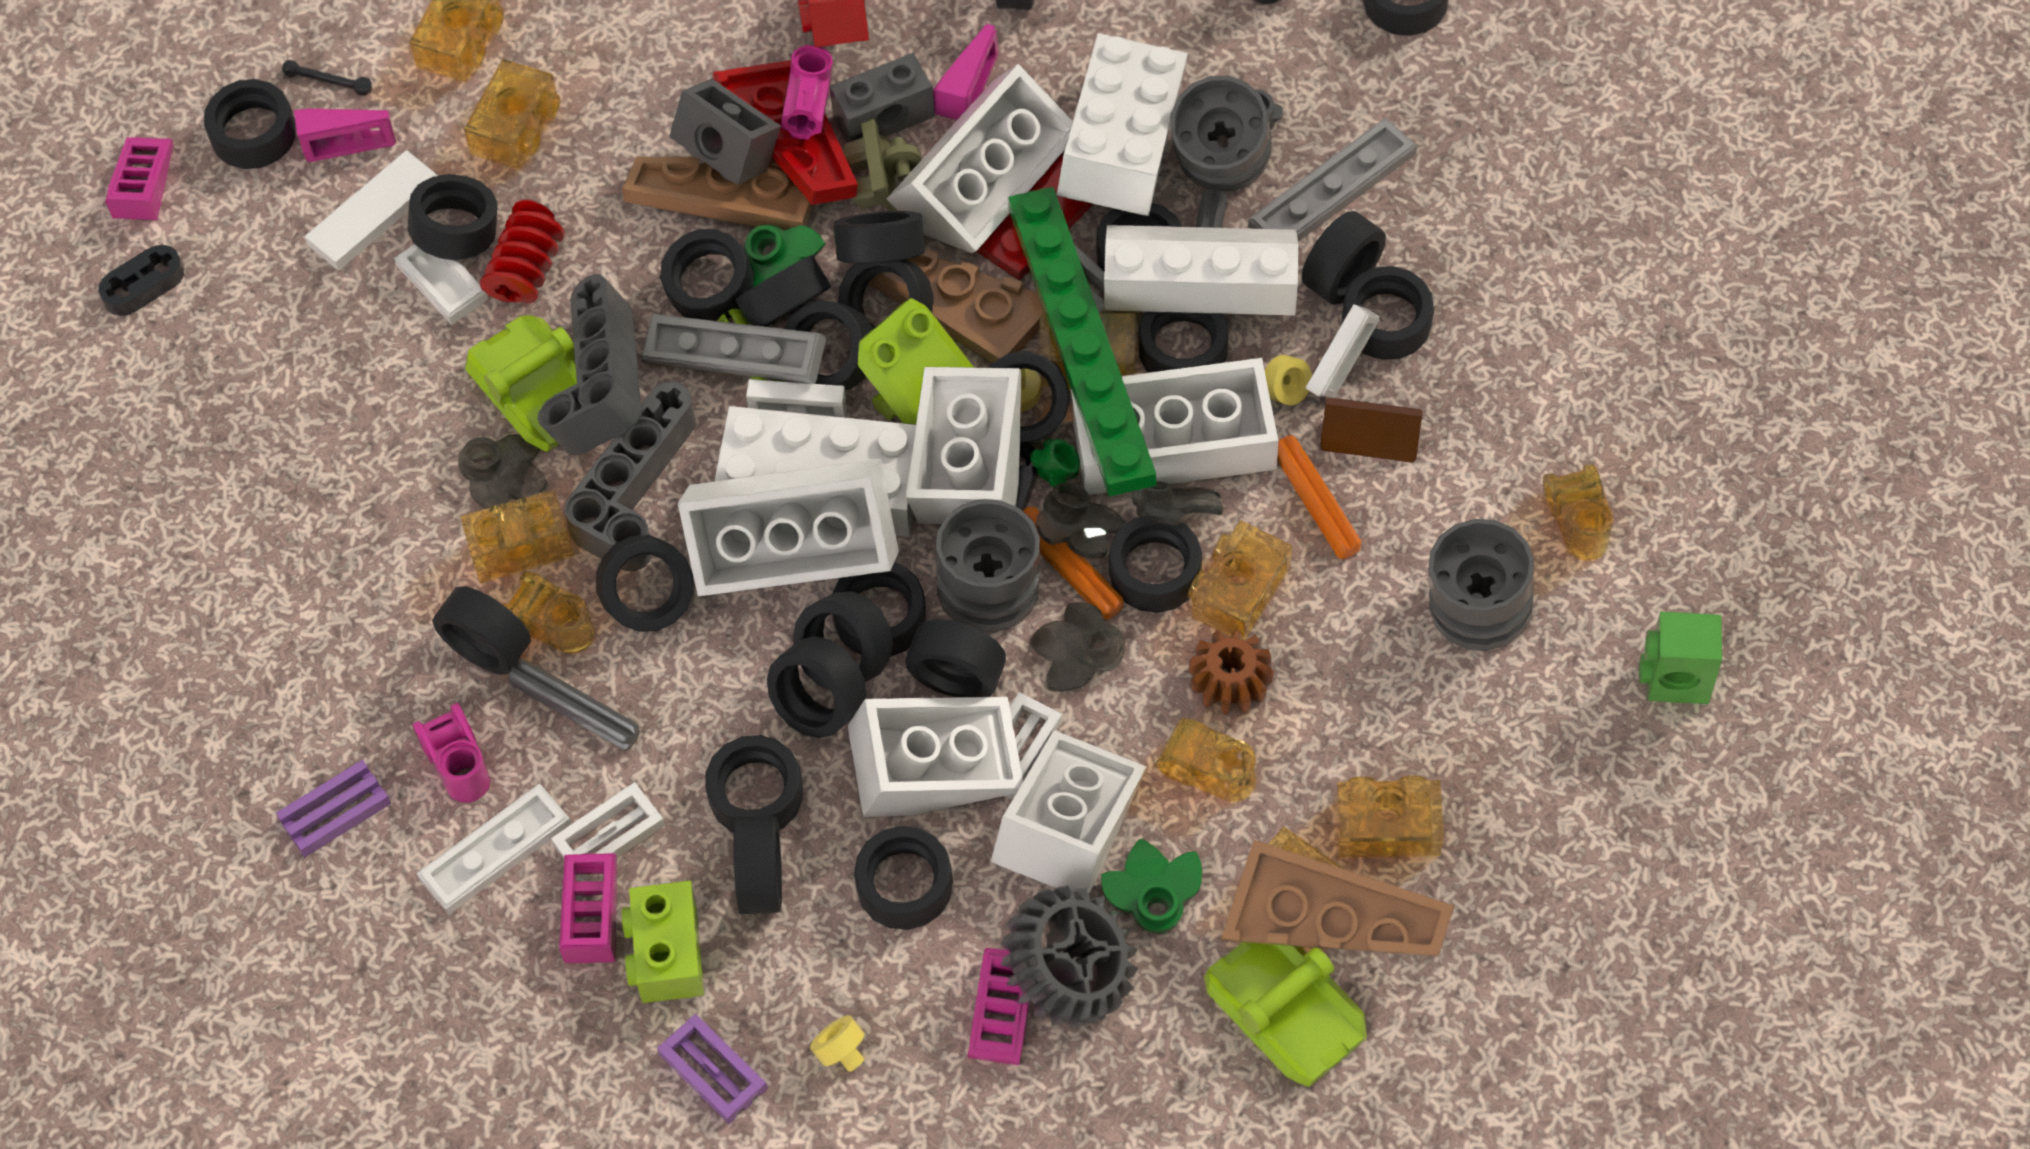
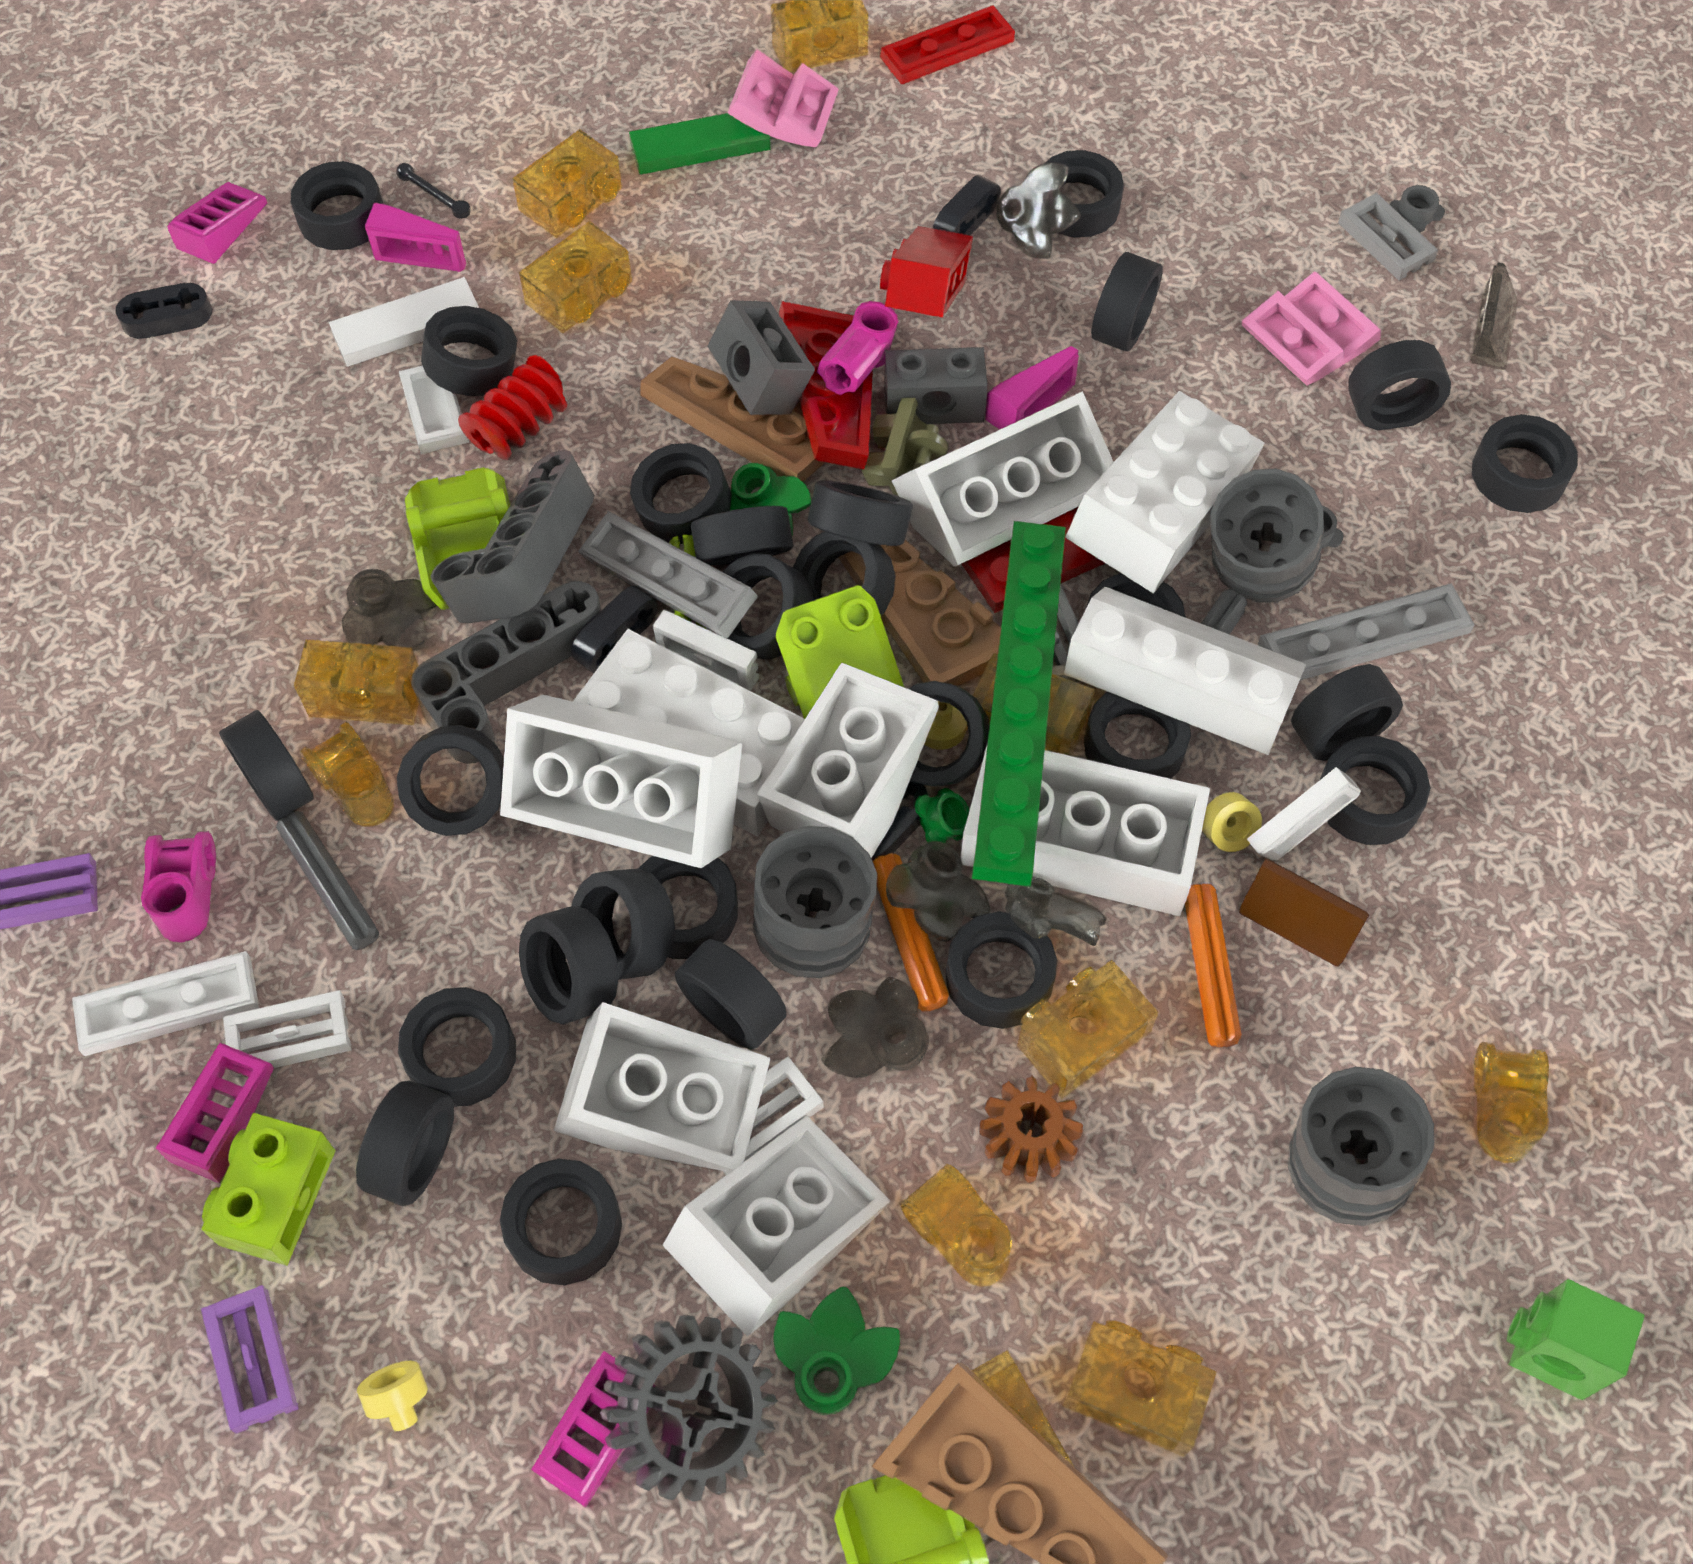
camera: 20 degrees right, 0 degrees up
(708, 412) = (628, 610): none -> black beam

